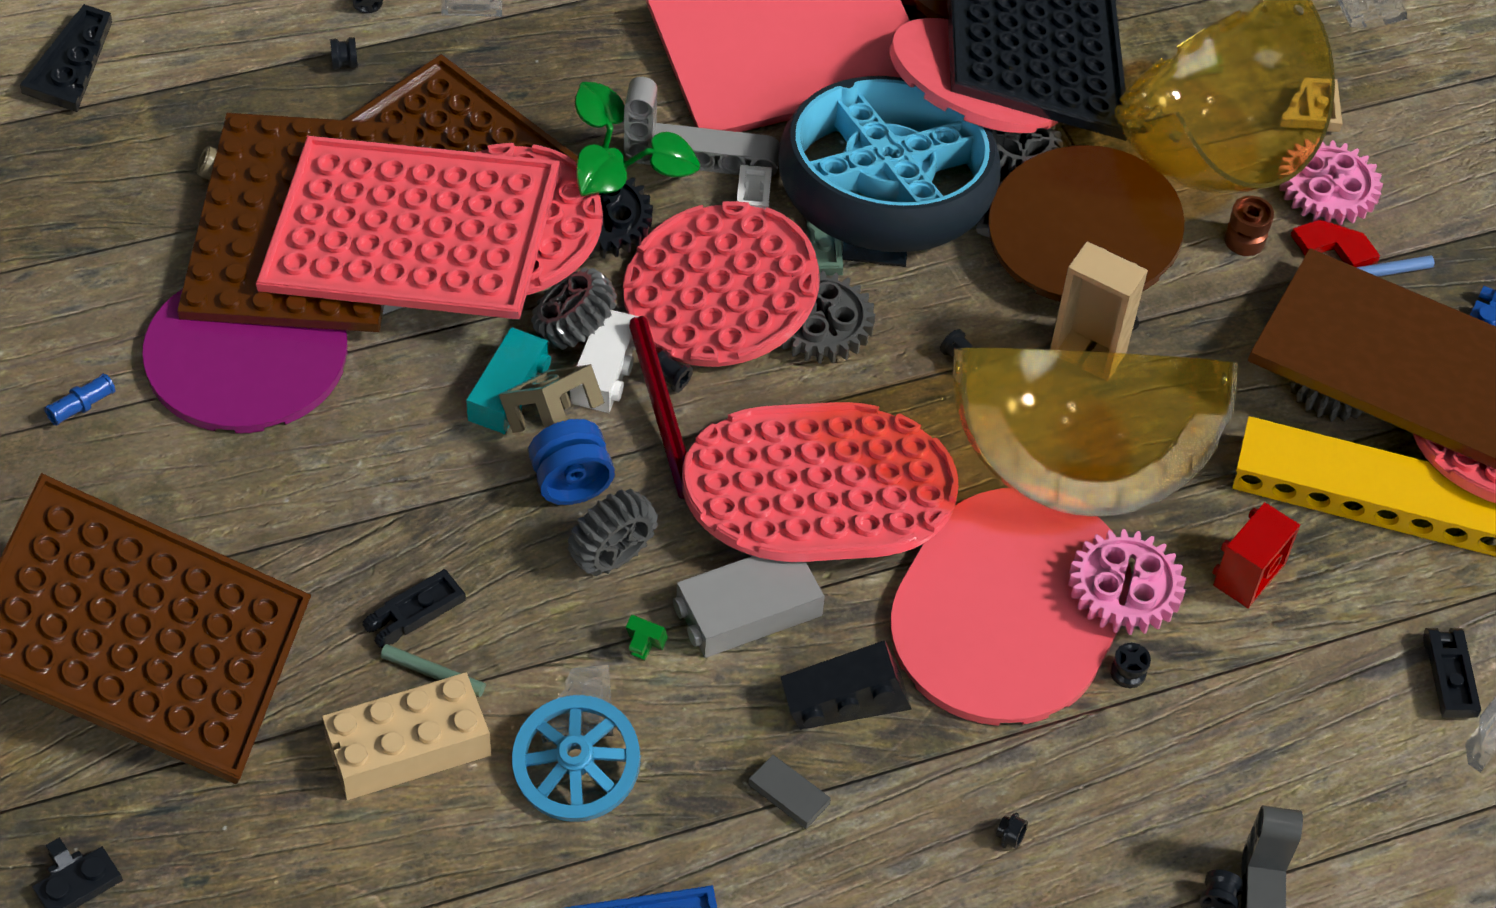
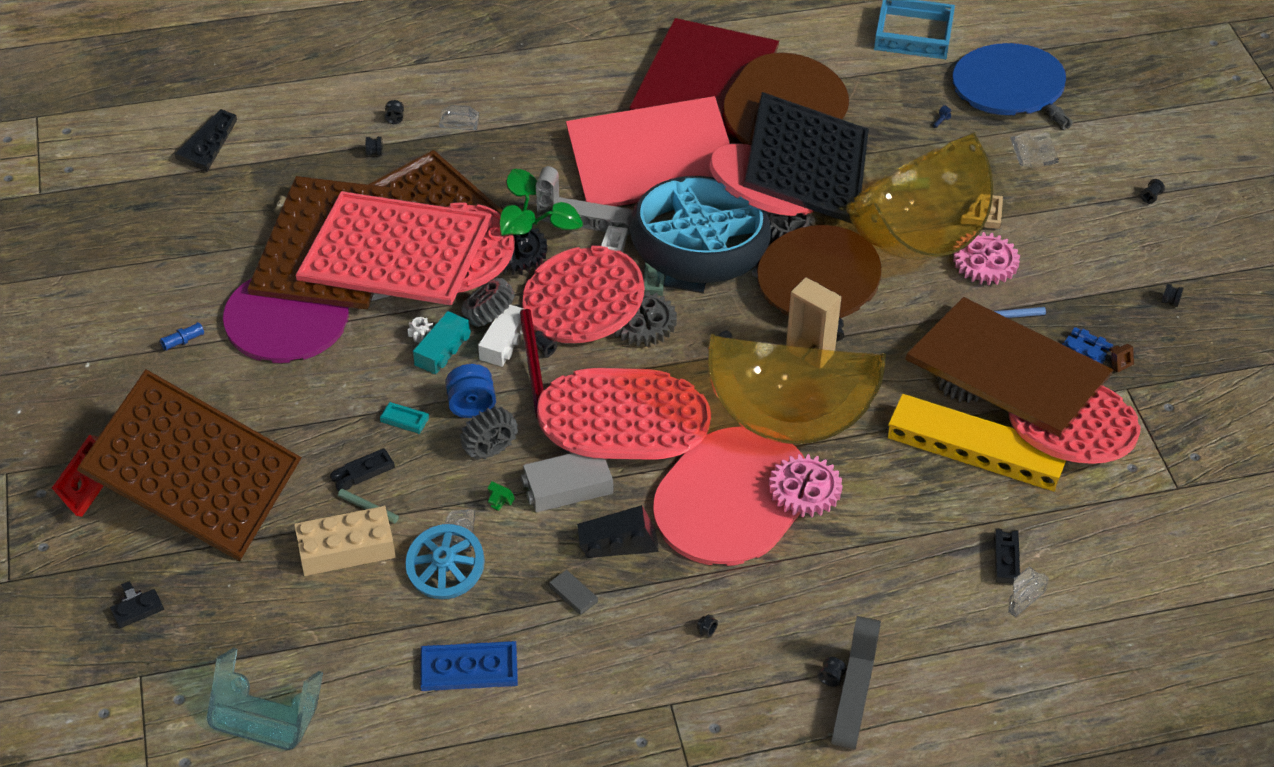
camera: 10 degrees right, 5 degrees down
(467, 512) = (404, 417): none -> teal tile
(469, 360) = (419, 328): none -> white gear
(550, 395) = (463, 351): dark tan panel -> none
(1130, 656) = (797, 532): black wheel -> none
(1249, 225) = (926, 281): copper wheel -> none
(1255, 554) = (890, 475): red container -> none
(1349, 244) = (992, 297): red tile -> none

